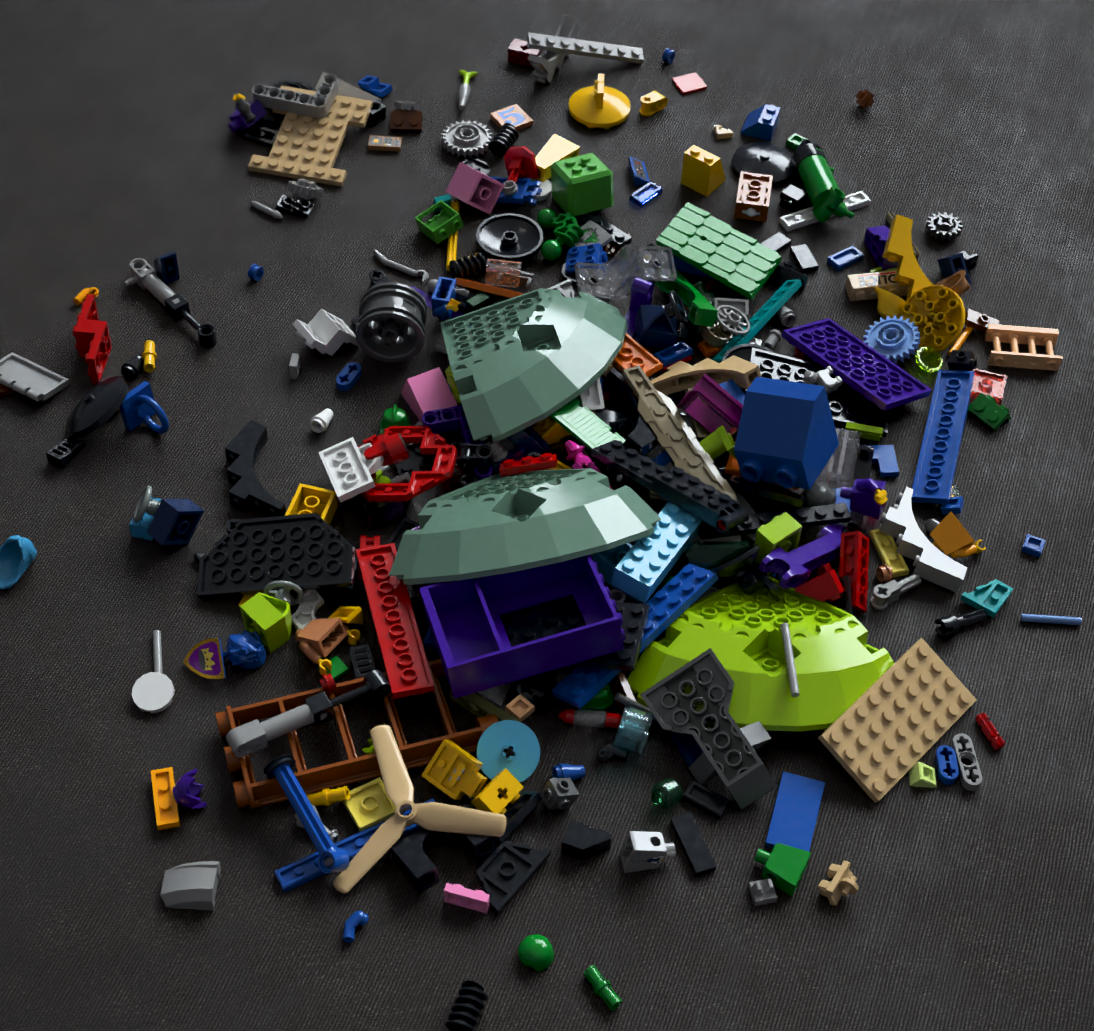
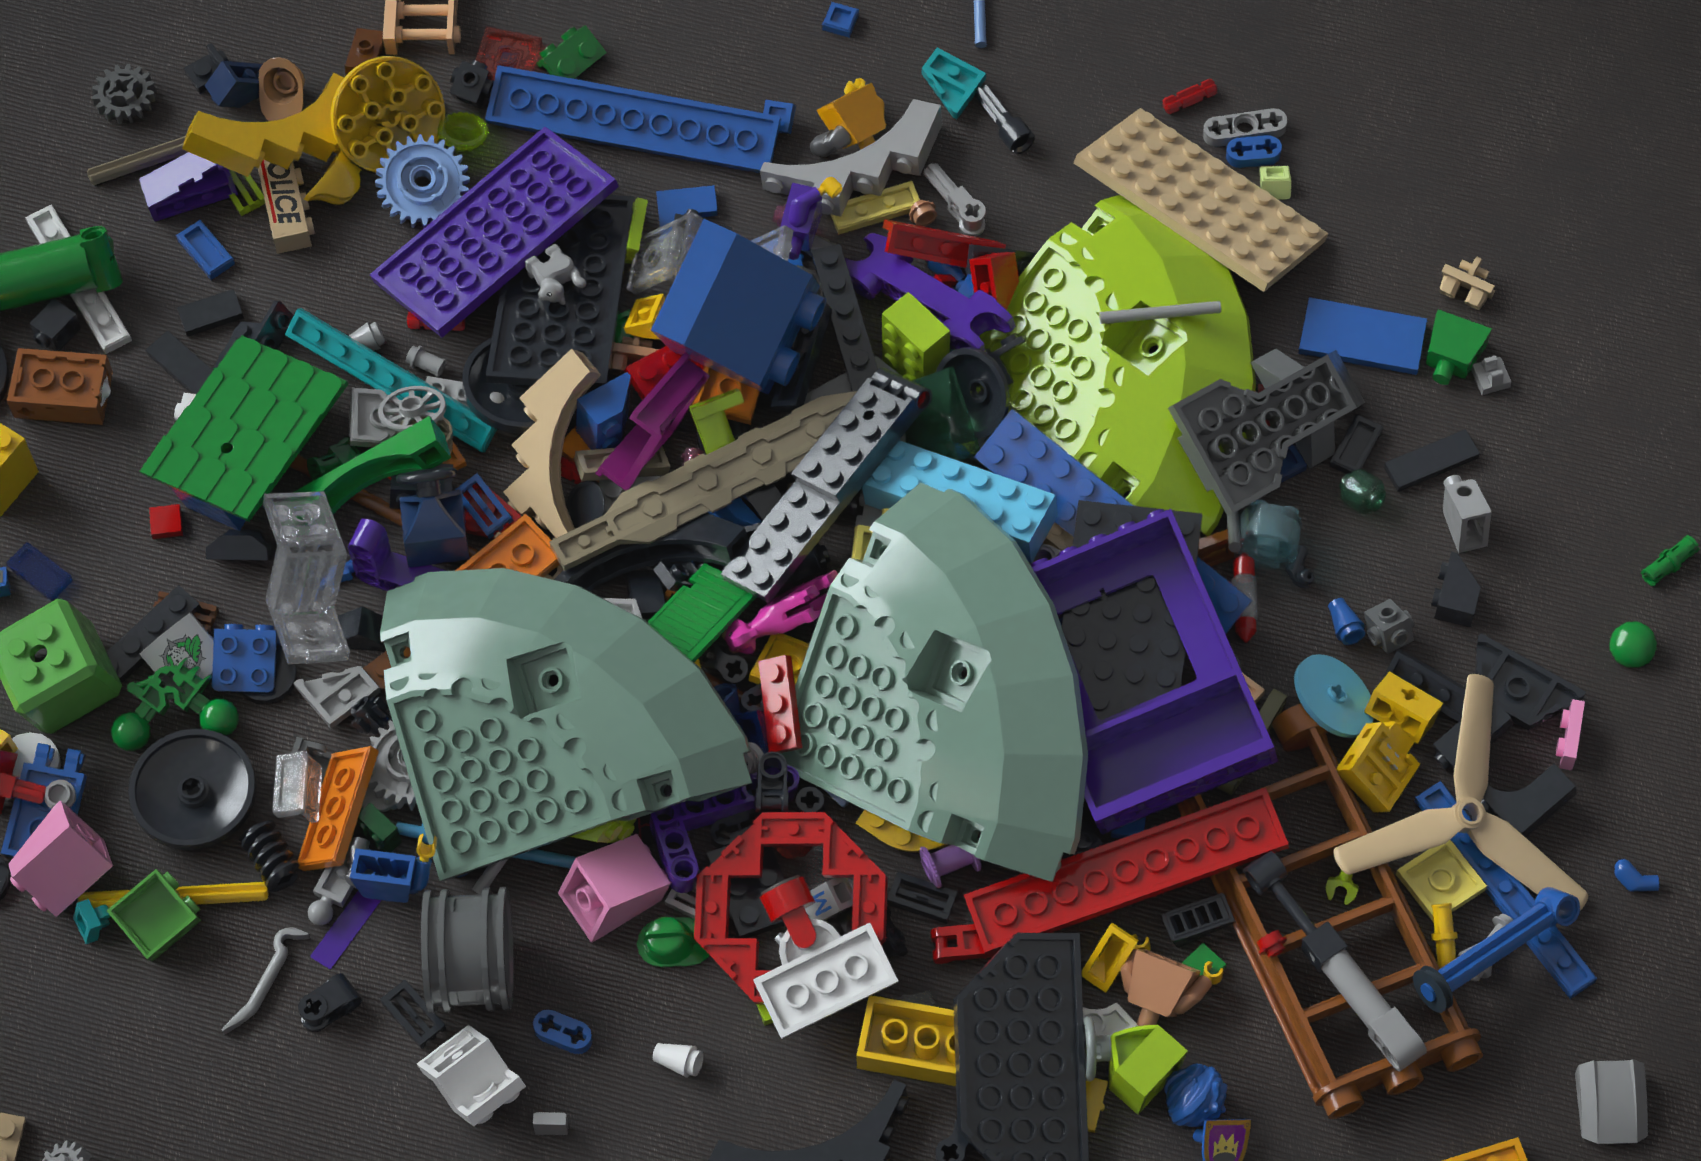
camera: 90 degrees left, 15 degrees up
(187, 790) = (1473, 1131): dark purple piece -> none

